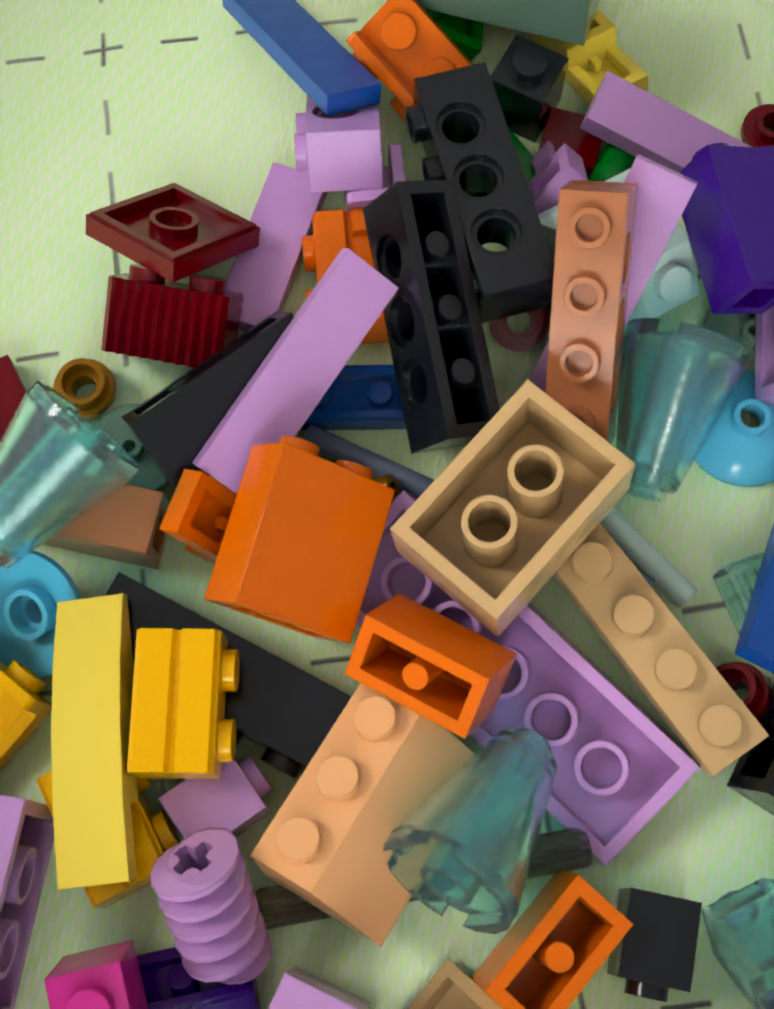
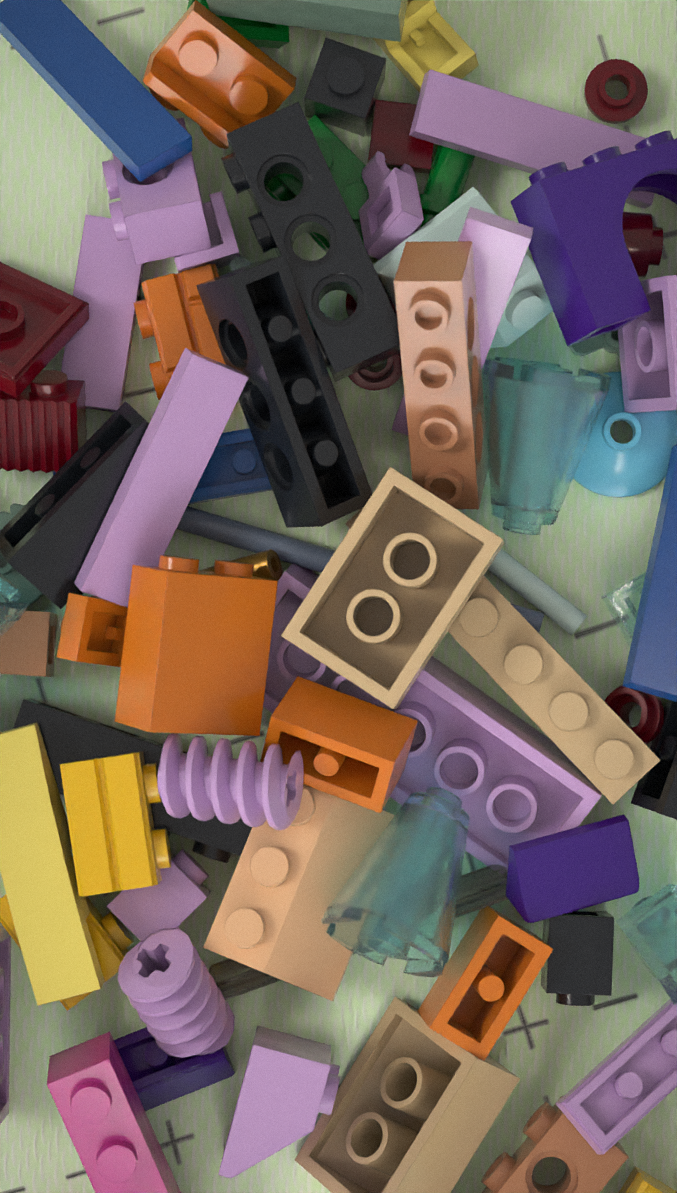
camera: 15 degrees left, 15 degrees up
(311, 683) = (230, 785): none -> lavender piece
(659, 843) = (572, 869): none -> dark purple slope

